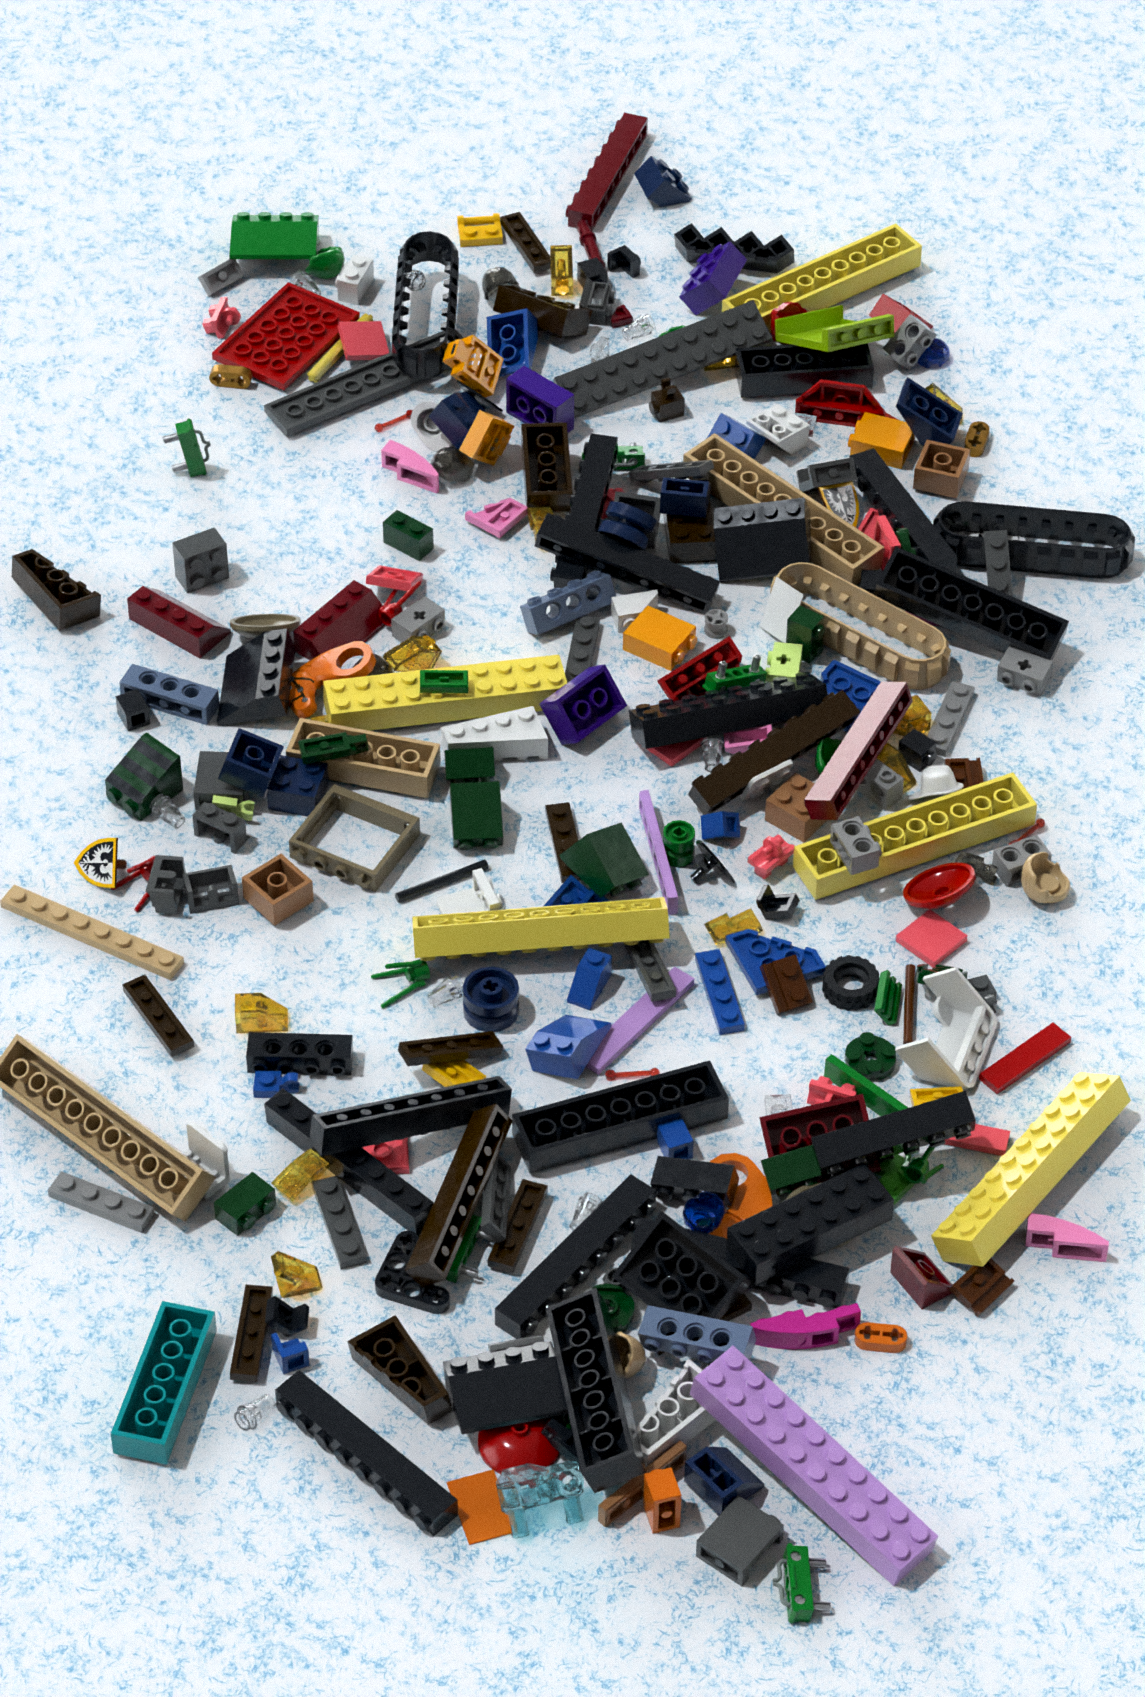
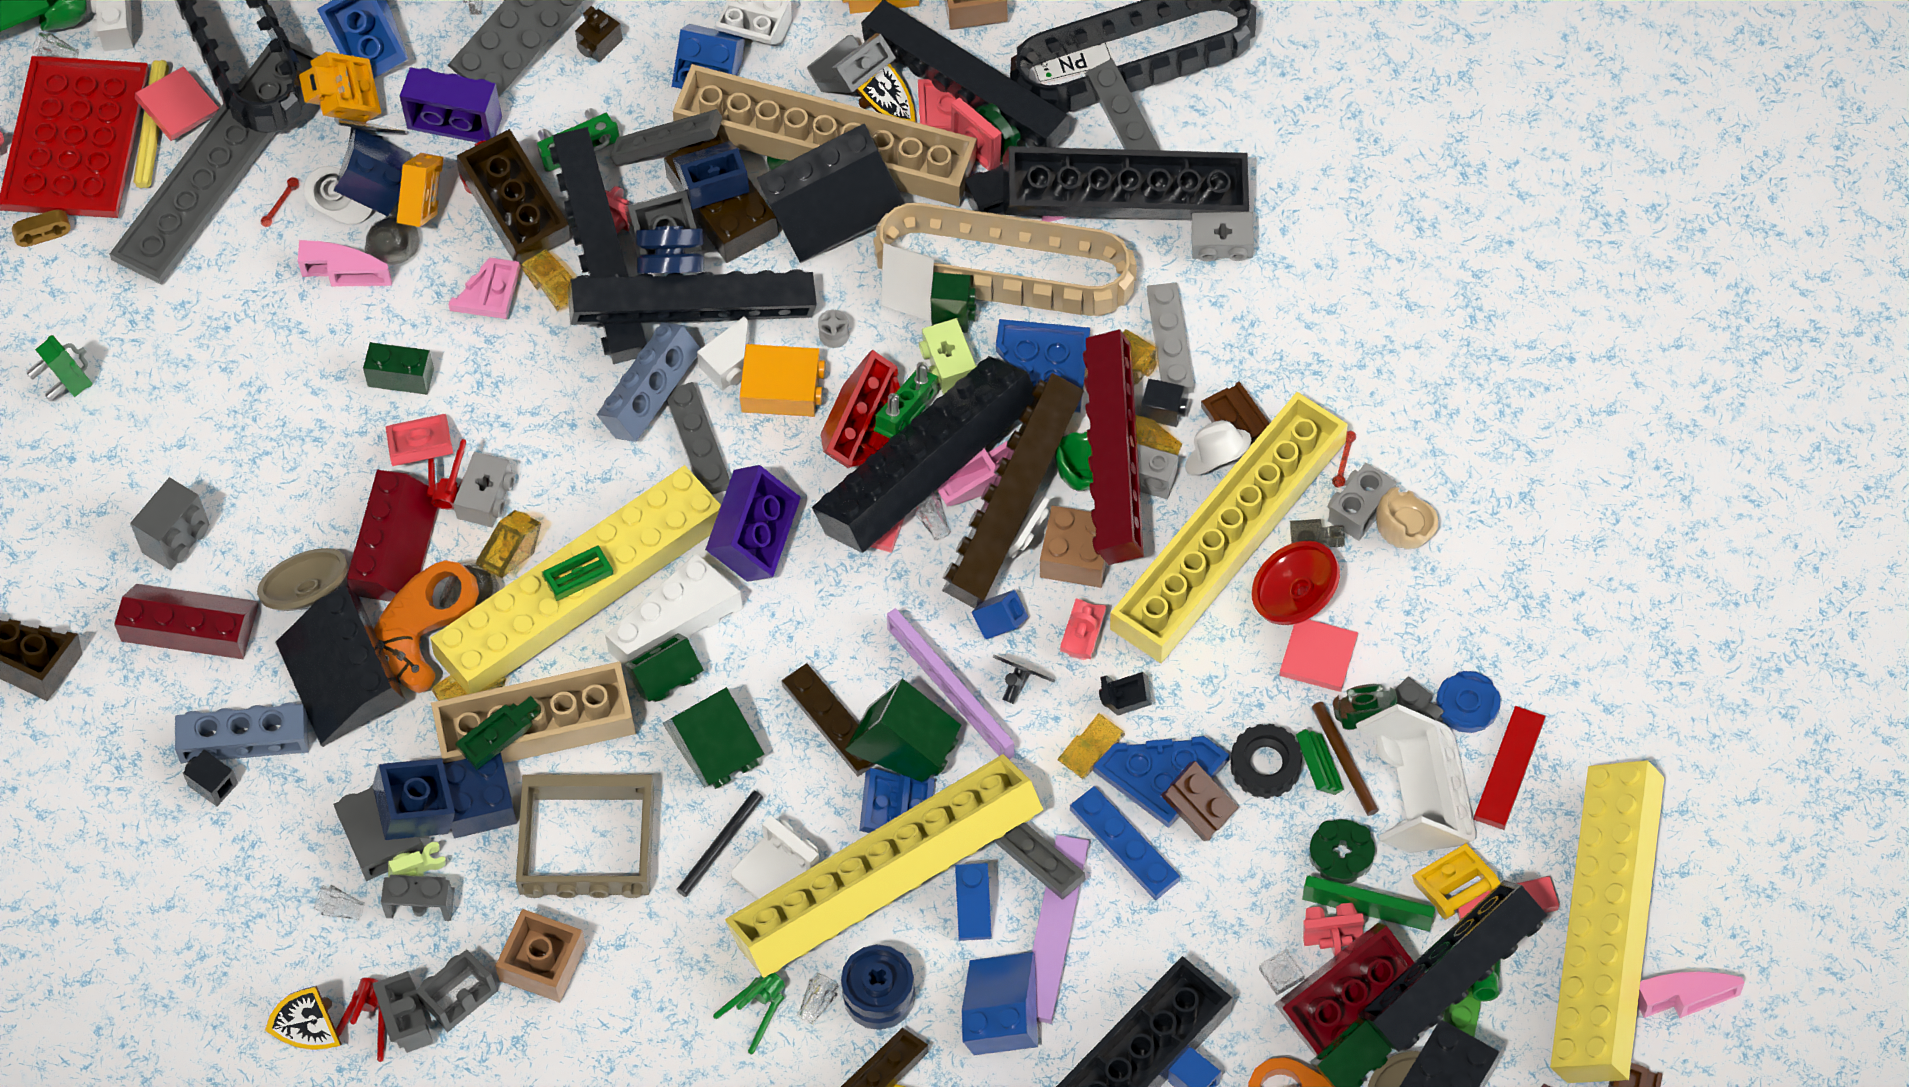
camera: 25 degrees left, 15 degrees up
(143, 775) = (286, 874): dark green slope -> none
(611, 1074) = (1066, 1017): clear red hinge -> none
(679, 843) = (970, 662): green wheel -> none
(855, 845) = (1178, 588): light grey brick -> none
(1021, 1008) = (1468, 701): none -> blue tile

